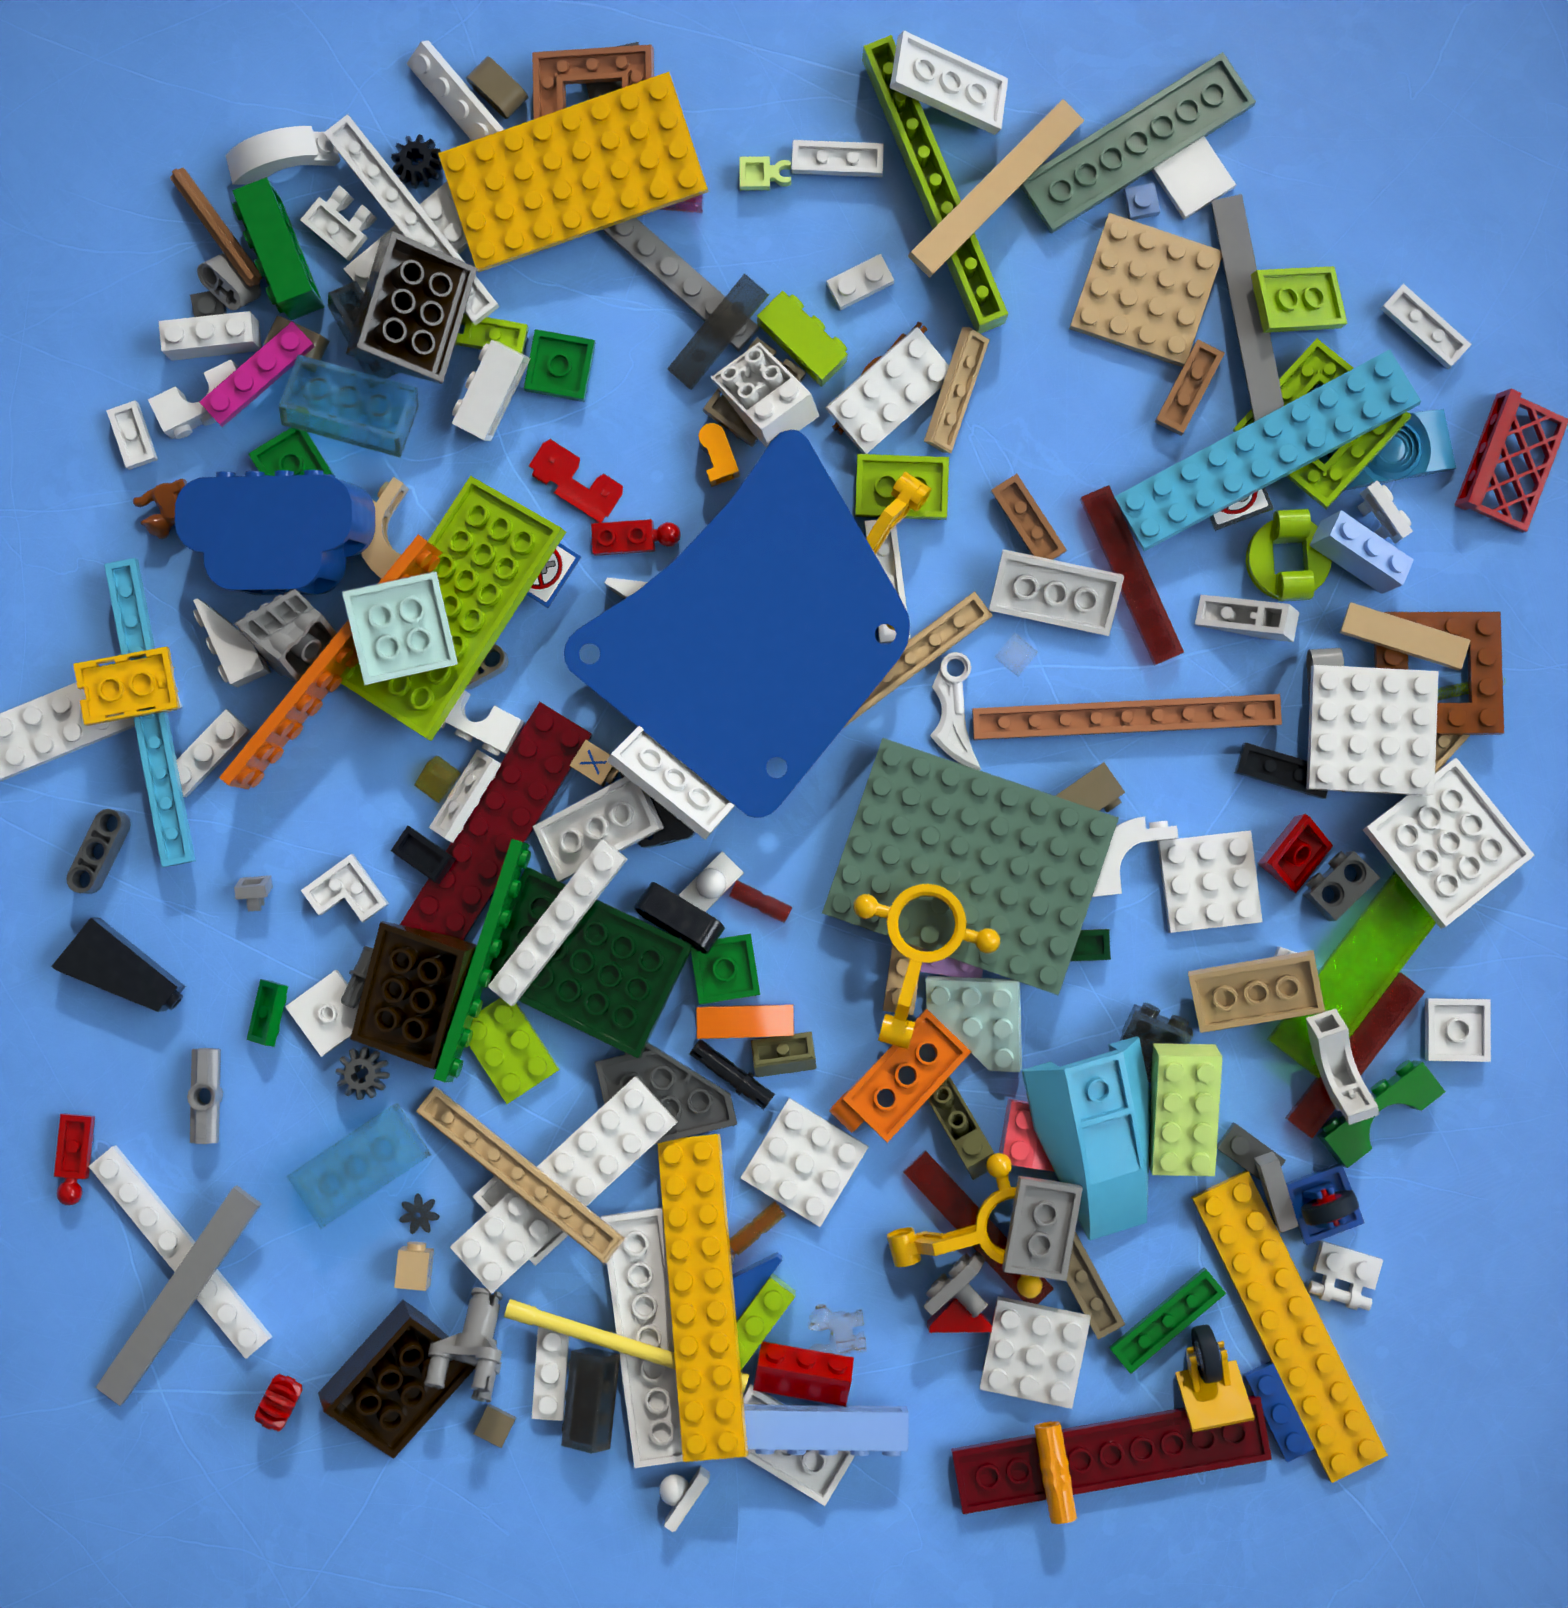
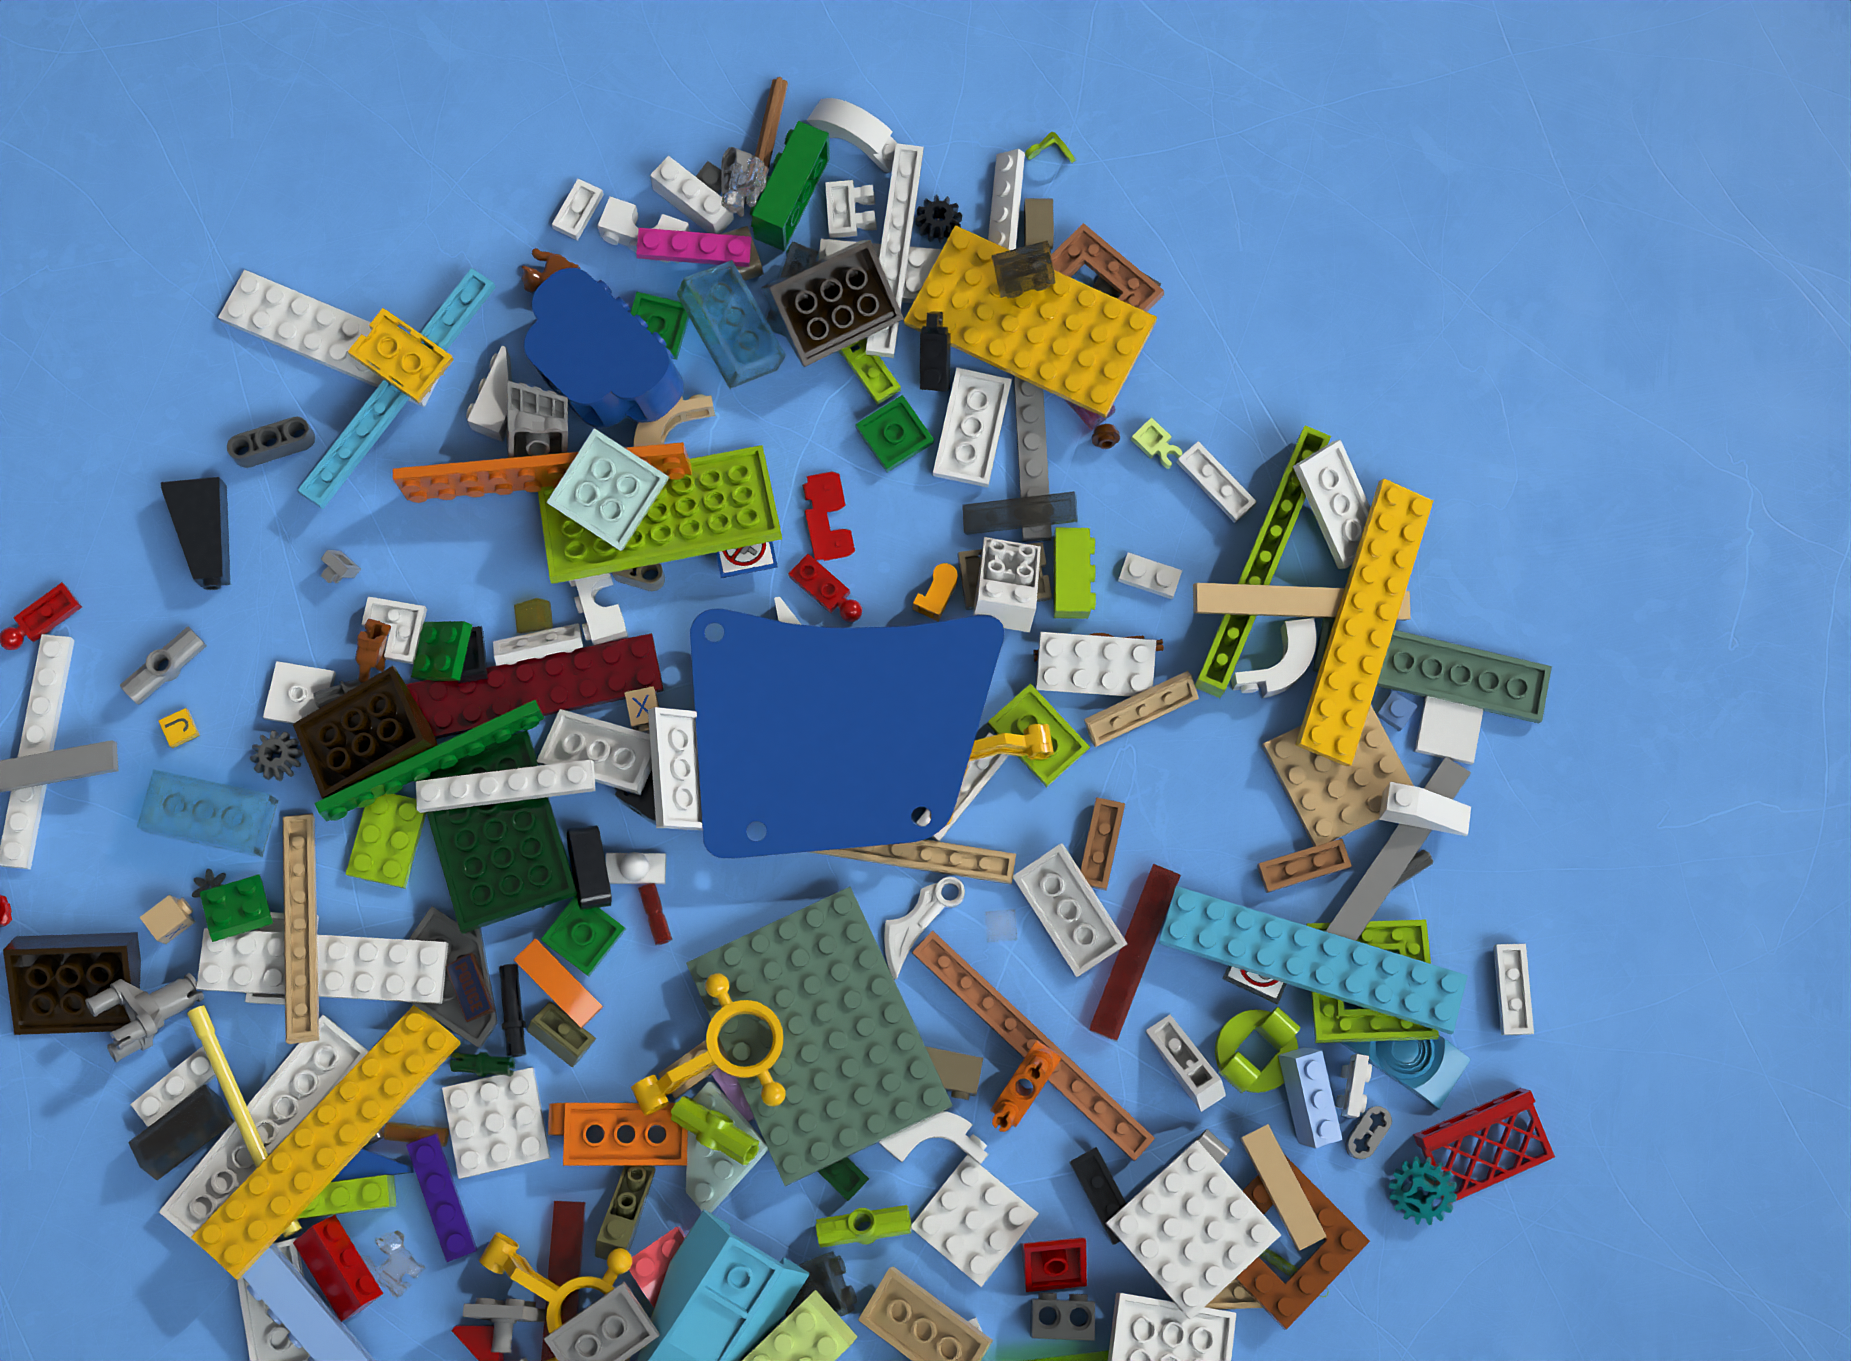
camera: 40 degrees right, 10 degrees down
(209, 750) = (408, 450): white plate -> none
(245, 283) = (745, 184): none -> clear animal
(267, 1012) = (260, 653): green plate -> none
(267, 1127) = (179, 728): none -> yellow tile
(348, 925) = (371, 648): none -> dark orange animal
(400, 873) = (441, 651): none -> green plate
(436, 9) = (1035, 149): none -> lime piece
(456, 1209) = (236, 908): none -> green plate
(489, 390) = (831, 403): white brick -> none
(495, 1425) = (102, 1083): dark tan tile -> none
(528, 272) = (935, 354): none -> black hinge
(534, 136) = (1023, 269): none -> clear smoke plate
(612, 301) = (972, 427): none -> white plate
(681, 1495) = (168, 1265): white tile -> none
(686, 1090) = (470, 987): none -> slope
(719, 206) = (1105, 436): none -> reddish brown plate
(752, 1132) = (482, 1064): none -> dark green pin
(822, 1251) = (441, 1197): none -> dark purple plate
(970, 1008) = (714, 1130): none -> lime piece
(1029, 231) = (1298, 651): none -> white arch
(1056, 155) = (1364, 623): none -> yellow plate
(1126, 982) = (843, 1228): none -> lime piece
(1154, 768) = (1016, 1099): none -> orange piece
(1237, 257) = (1423, 809): none -> white slope
(1298, 299) = (1439, 880): lime plate -> none
(1430, 535) = (1362, 1128): none -> light grey beam
(1501, 552) = (1410, 1192): none -> teal gear

